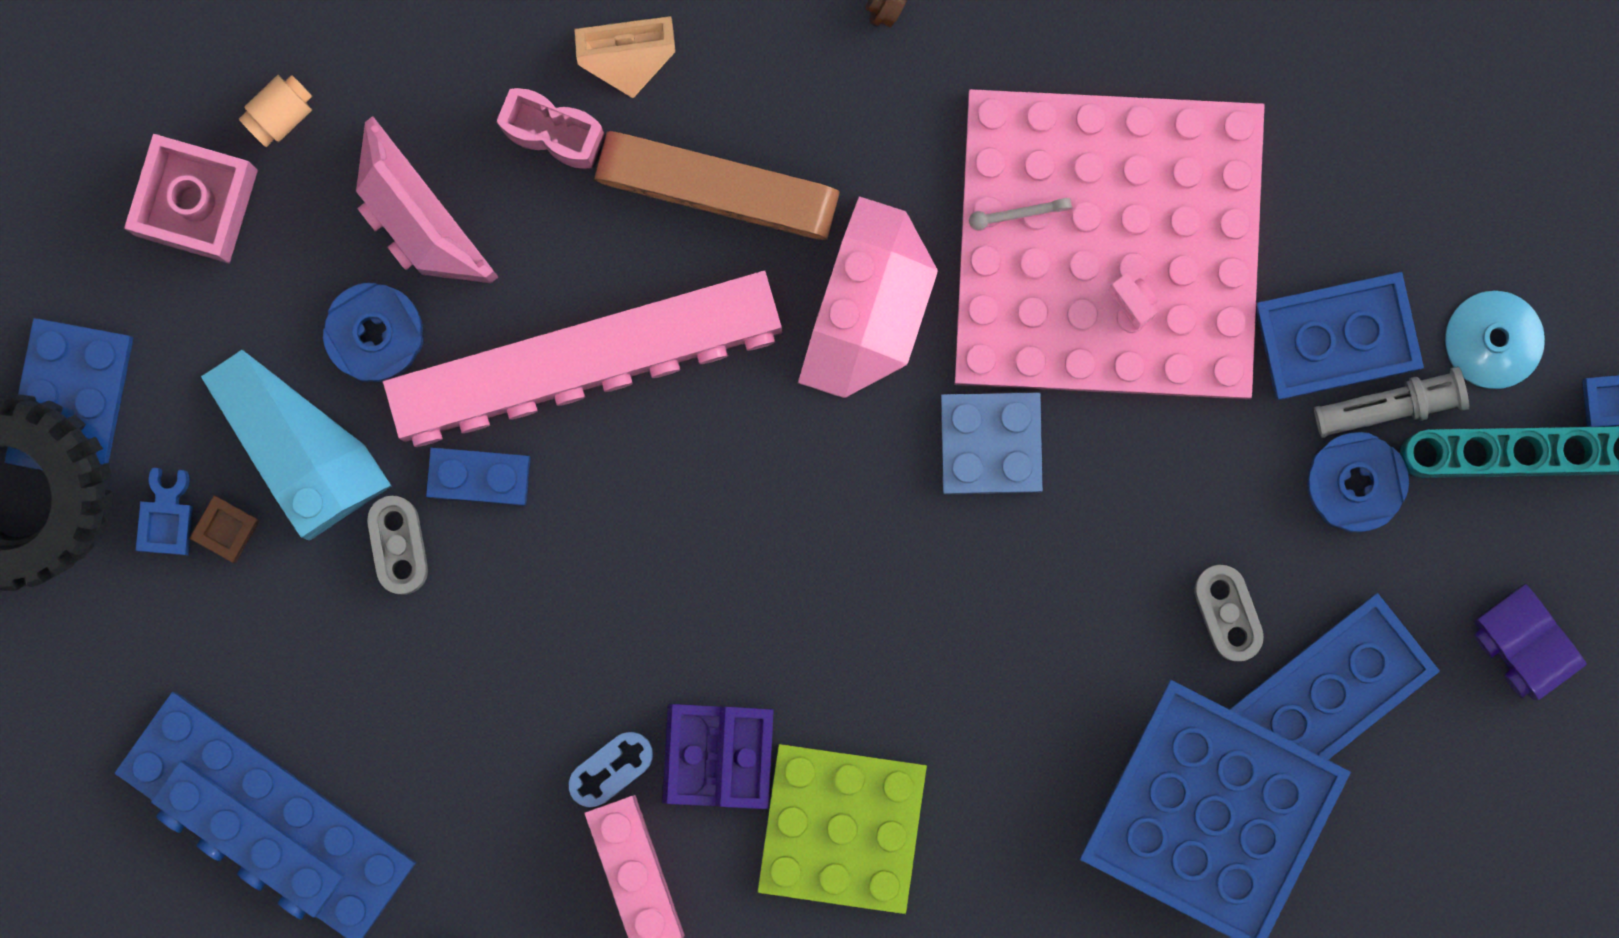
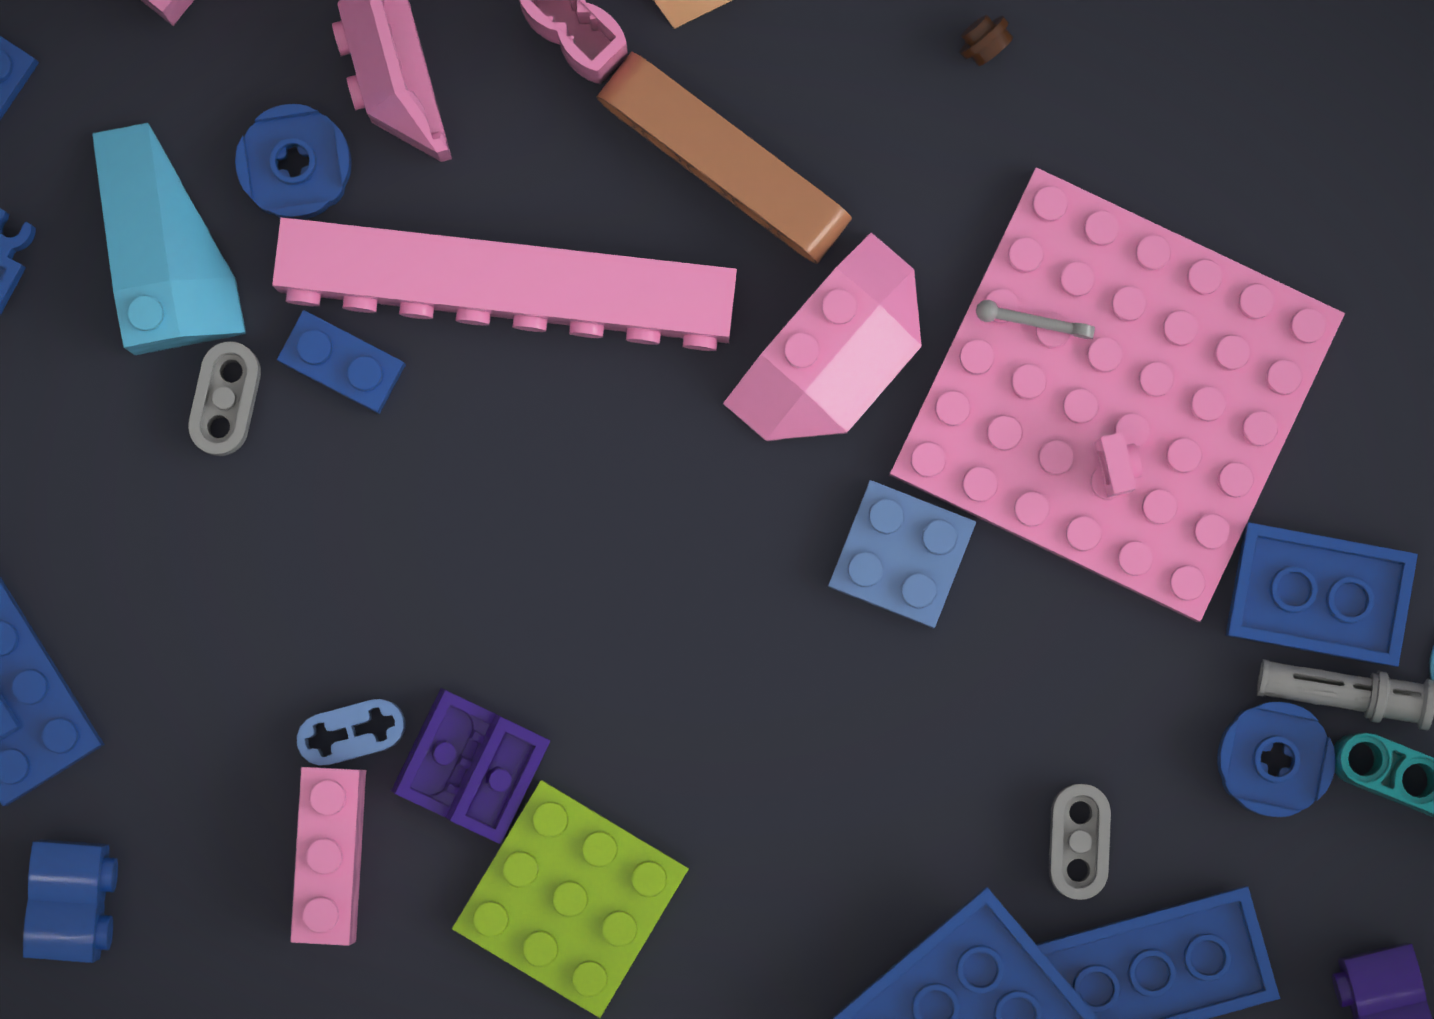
camera: 15 degrees right, 0 degrees up
(224, 529) = (48, 305): reddish brown plate -> none

